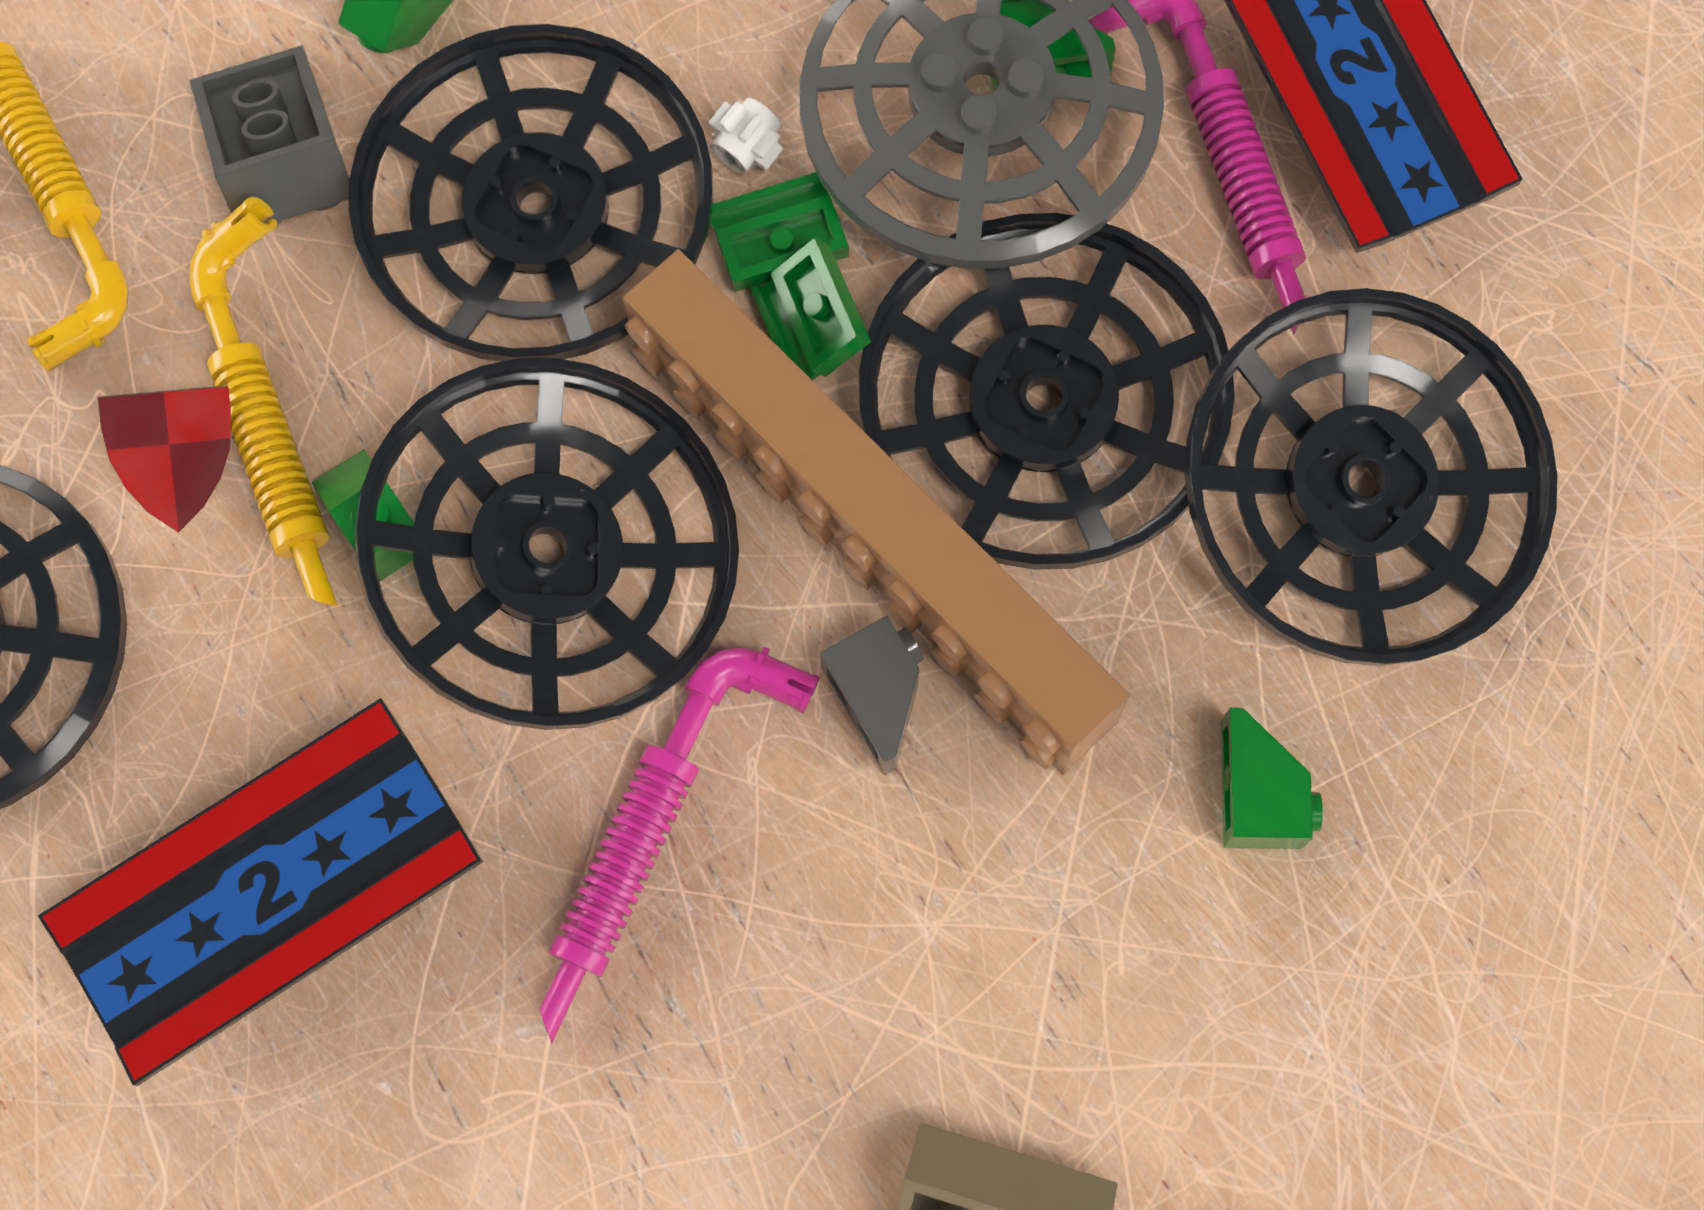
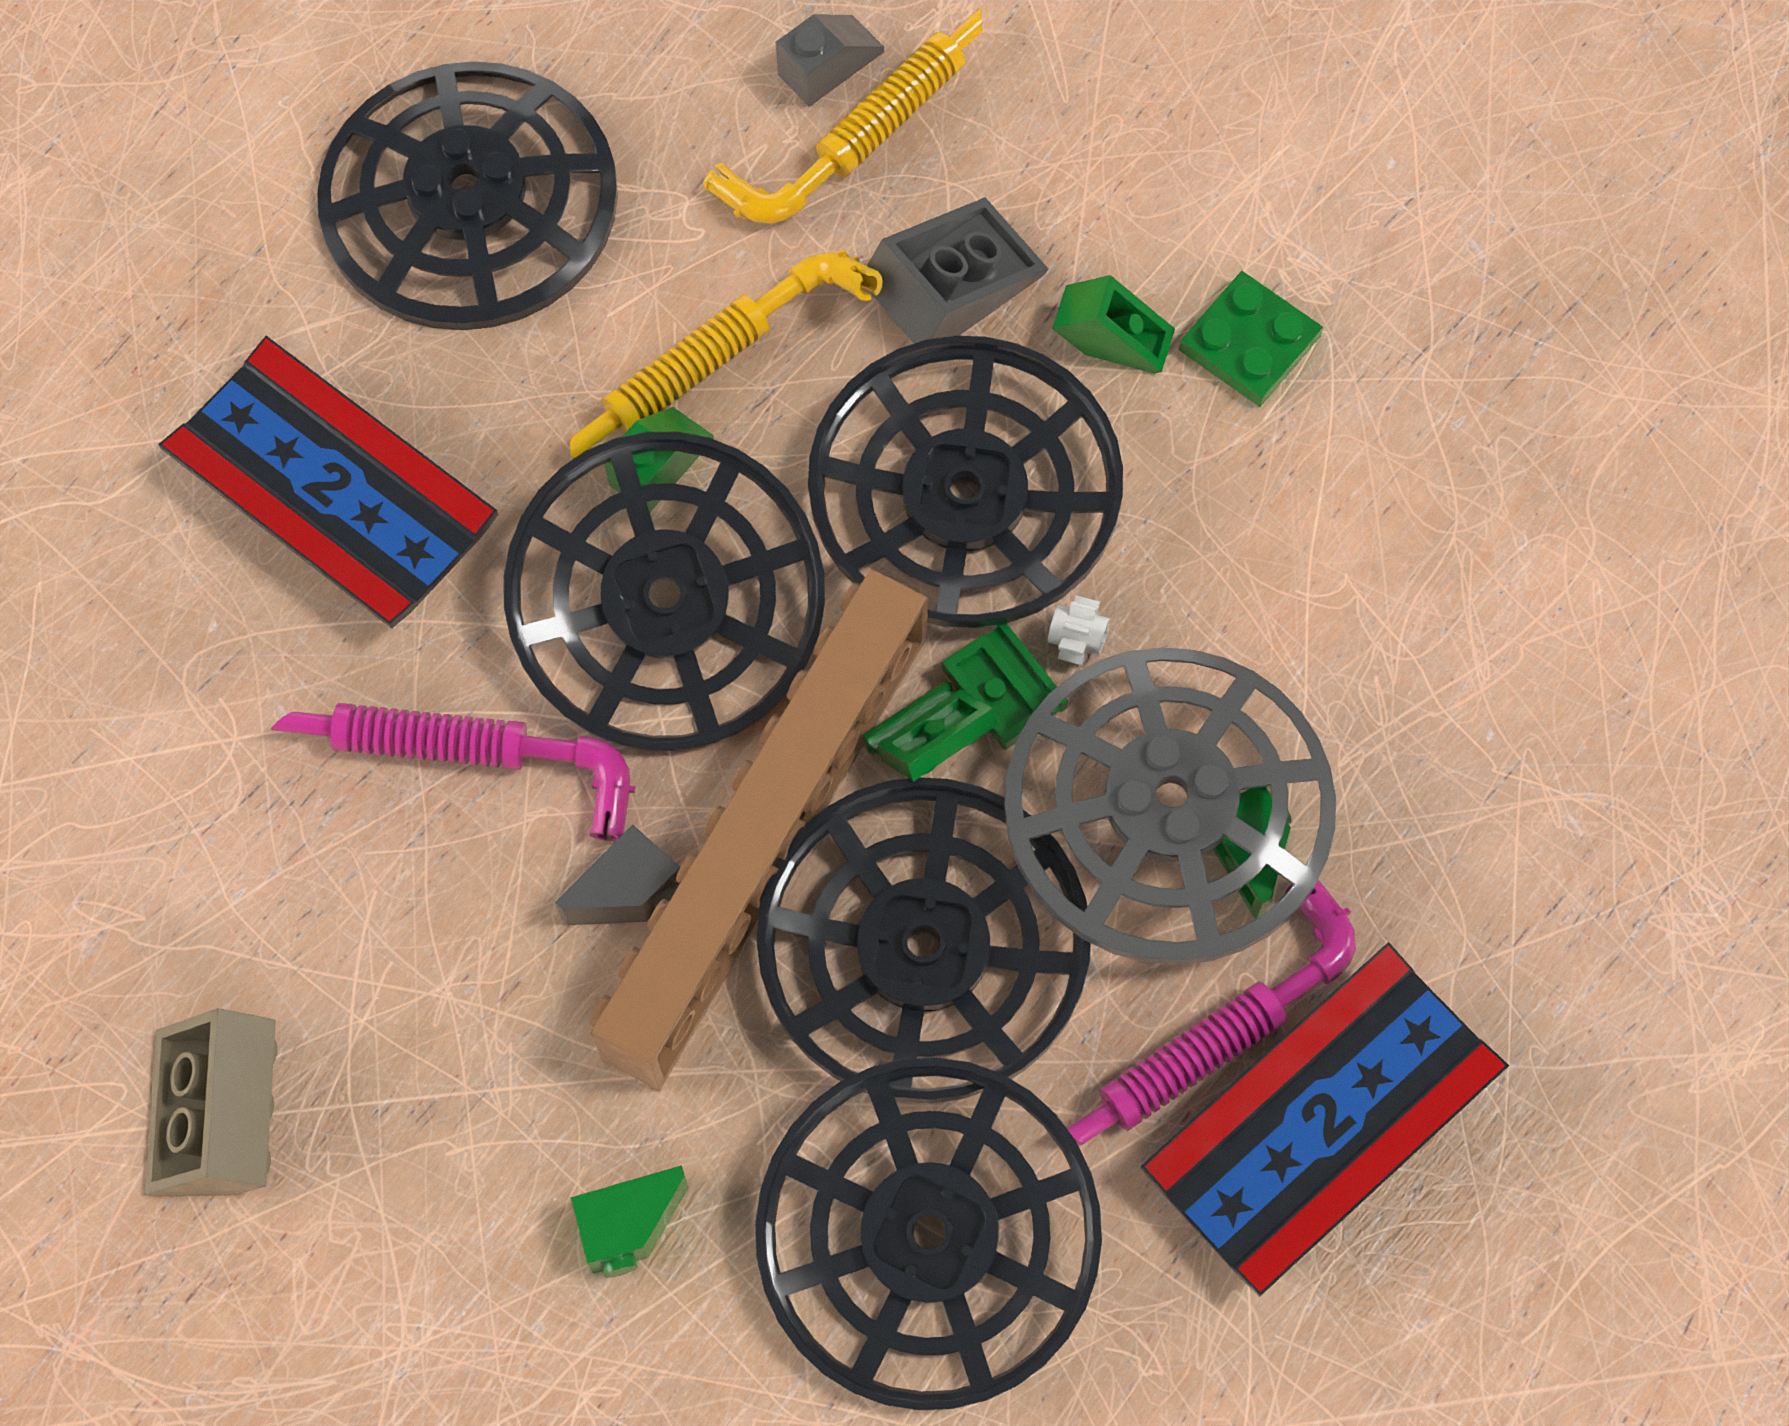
camera: 70 degrees right, 5 degrees down
(168, 447) = (658, 292): shield -> none

